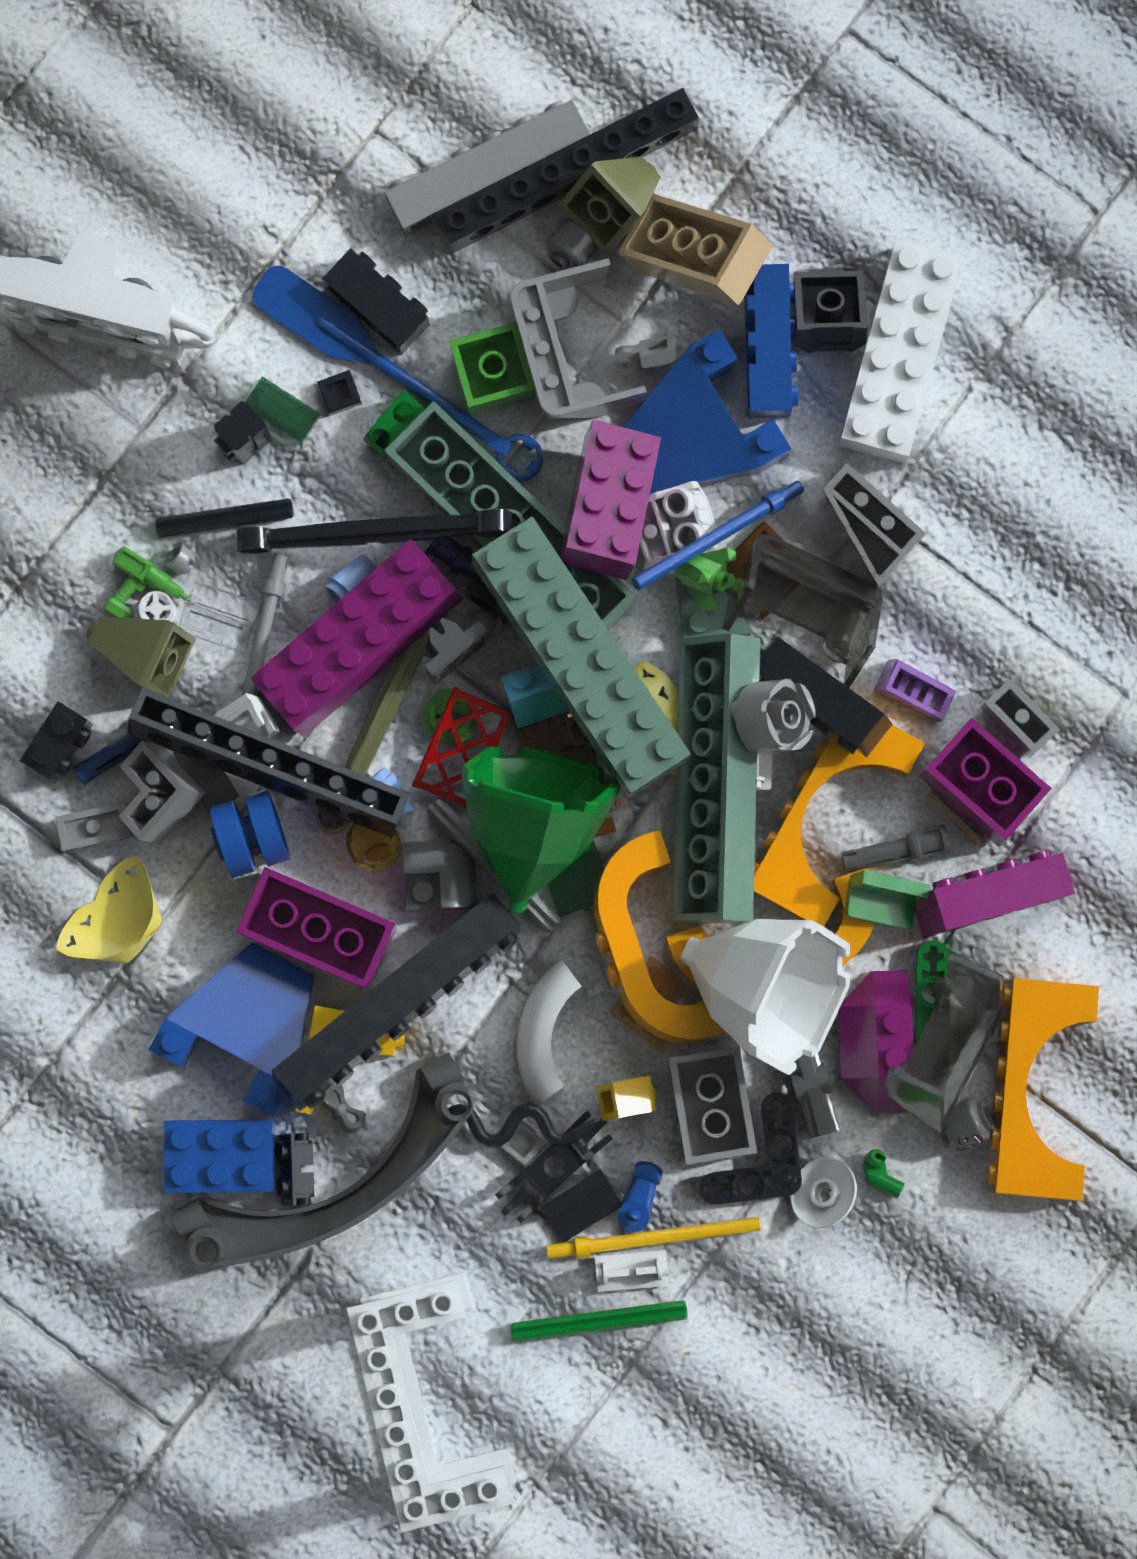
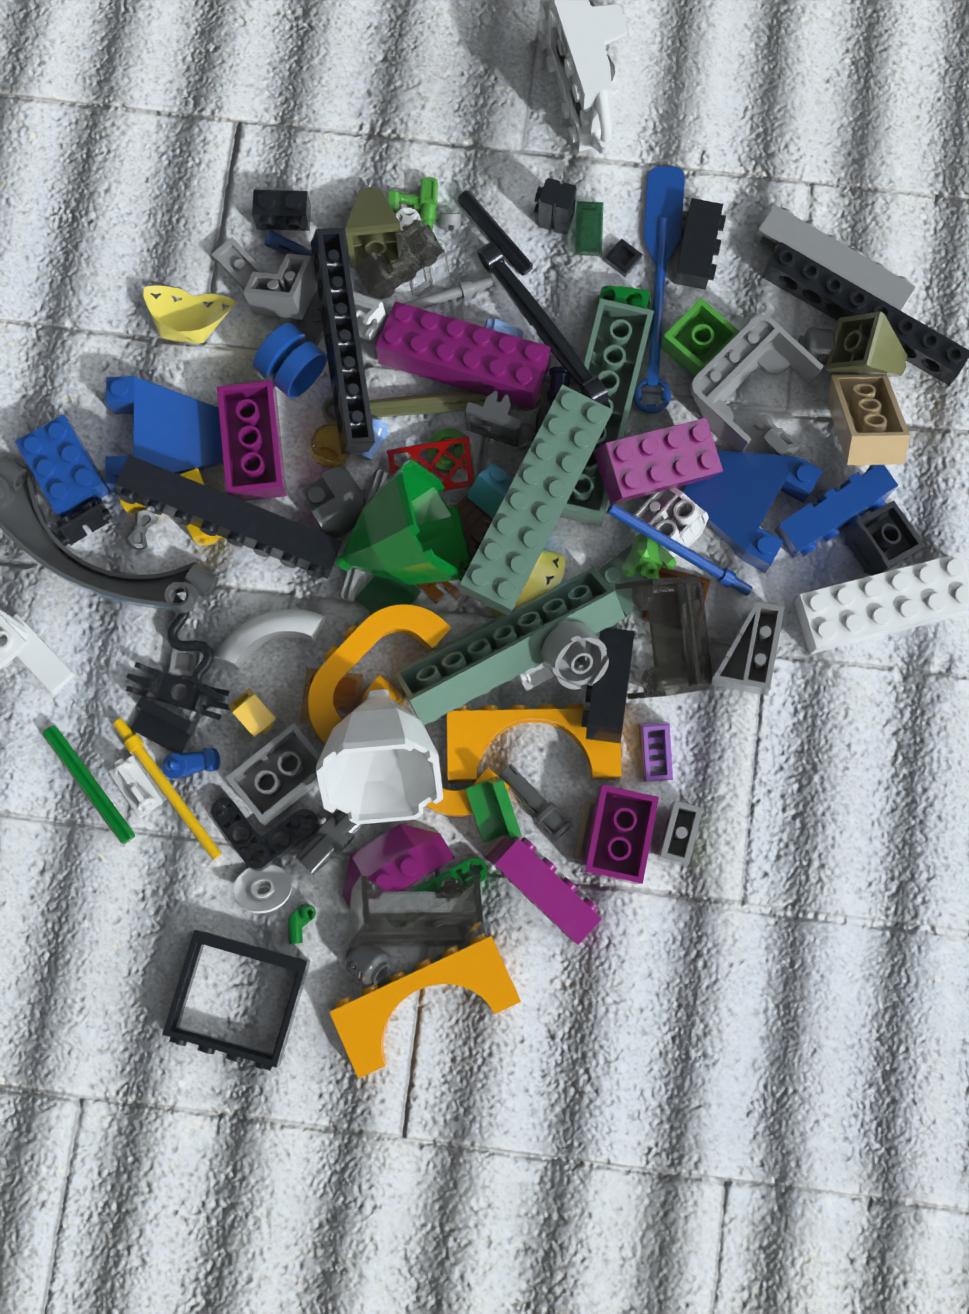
camera: 60 degrees right, 5 degrees down
(205, 615) = (418, 251): none -> clear smoke arch
(977, 1317) = (209, 1044): none -> black window

